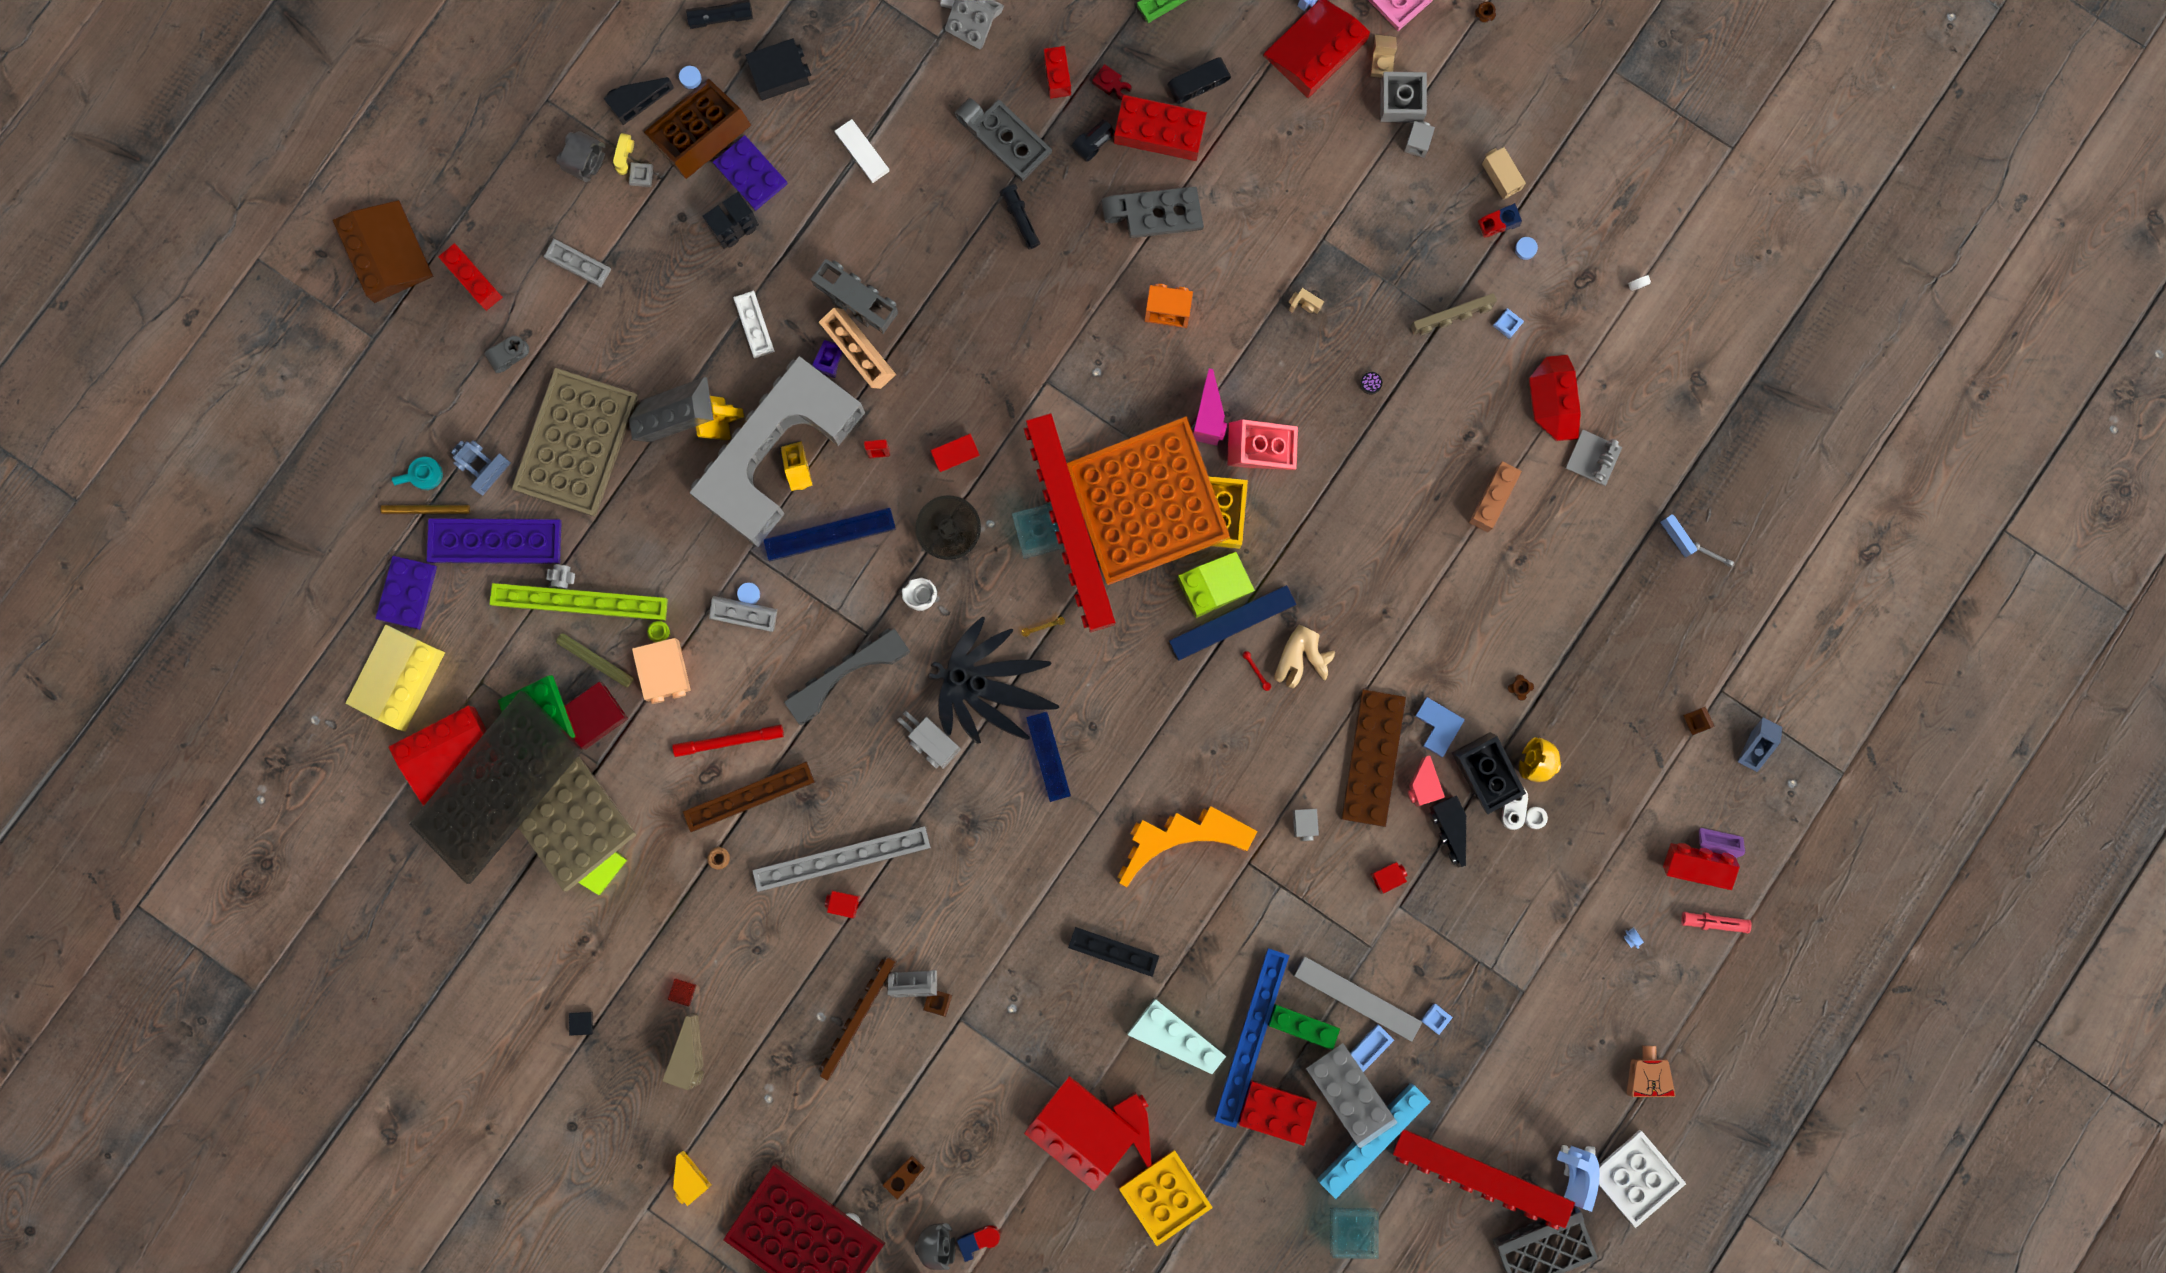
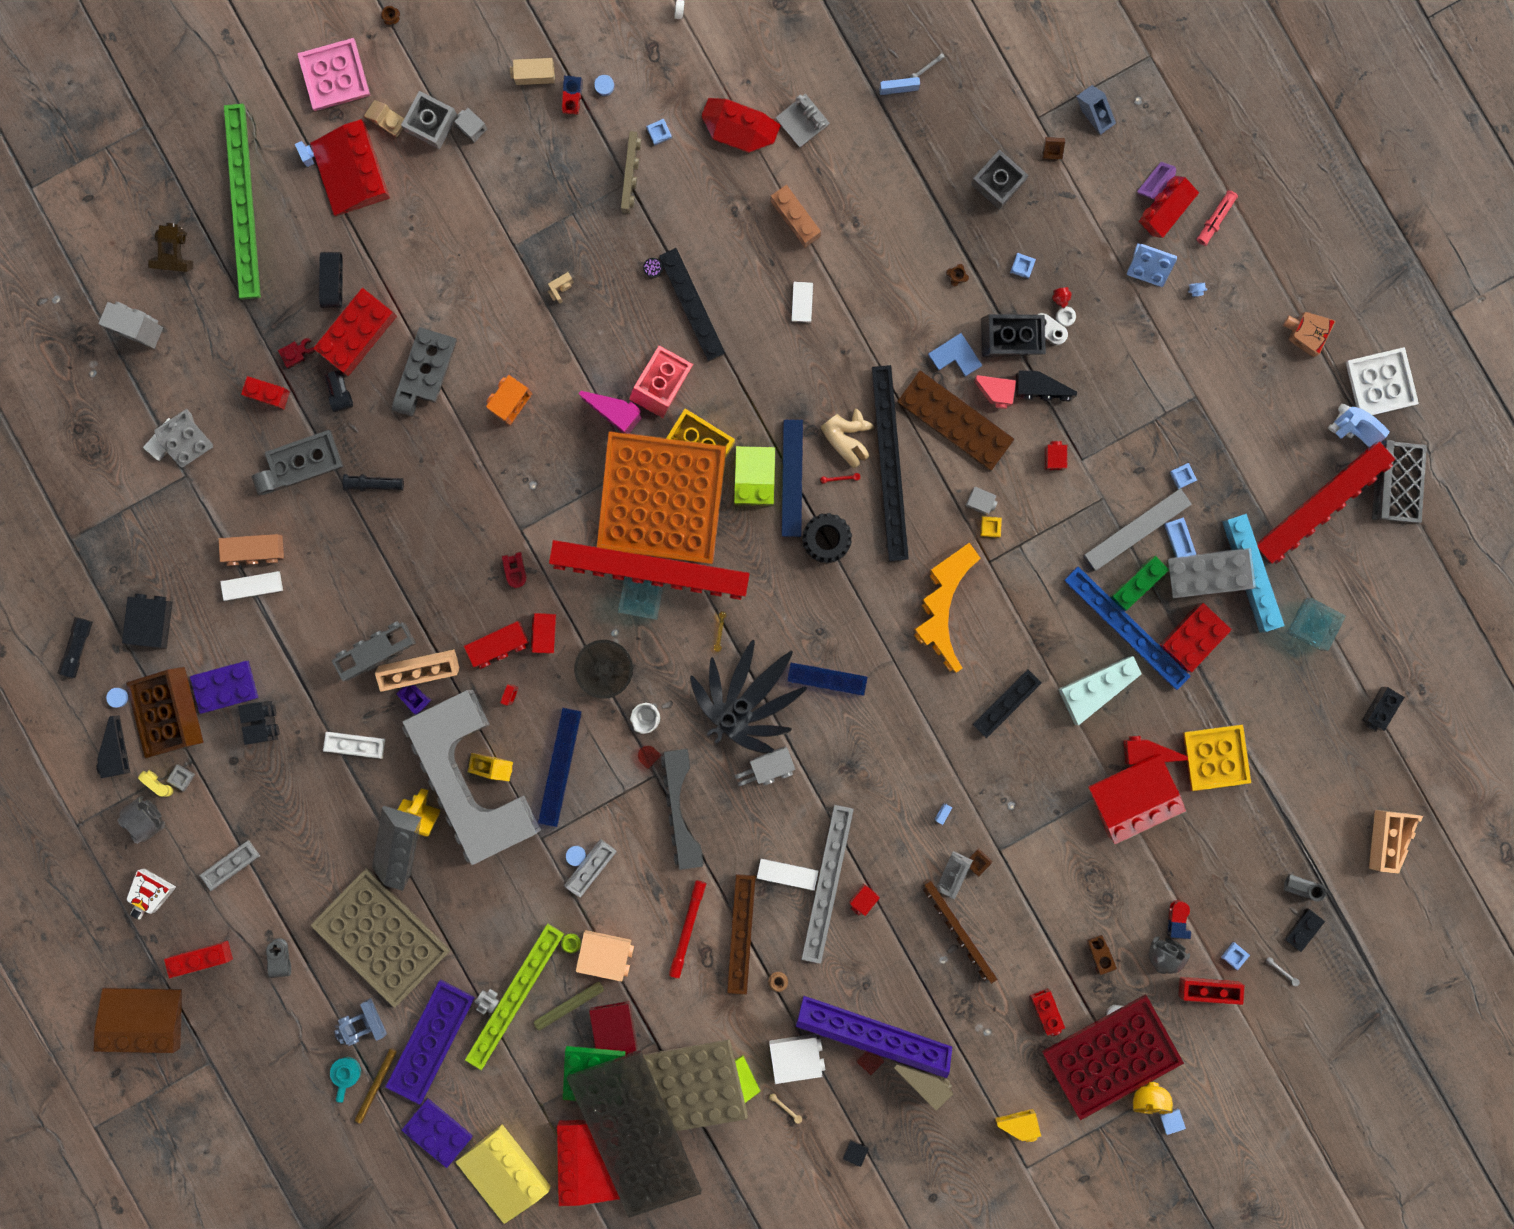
camera: 60 degrees left, 5 degrees up
(512, 198) = (148, 893): none -> torso
(589, 947) = (797, 1118): none -> tan hinge
(649, 915) = (796, 1058): none -> white brick
(708, 983) = (874, 1036): none -> dark purple plate
(818, 1150) = (1047, 1012): none -> red brick
(831, 814) = (787, 874): none -> white tile
(883, 616) = (648, 756): none -> clear red tile
(897, 132) = (251, 549): none -> nougat brick
(920, 413) = (497, 645): none -> red brick
(969, 941) = (943, 813): none -> light blue tile
(997, 400) = (515, 577): none -> dark red plate
(1195, 667) = (837, 524): none -> black tyre
(1284, 847) = (990, 527): none -> yellow tile
(1296, 713) = (890, 463): none -> black plate
(1354, 439) = (692, 304): none -> black plate
(1413, 546) = (802, 302): none -> white tile
(1541, 760) = (1024, 290): yellow cylinder -> none
(1554, 803) = (1062, 296): none -> red plate
(1566, 748) = (1022, 265): none -> light blue tile
(1632, 878) = (1151, 265): none -> light blue bracket
(1638, 681) = (999, 179): none -> flat silver brick

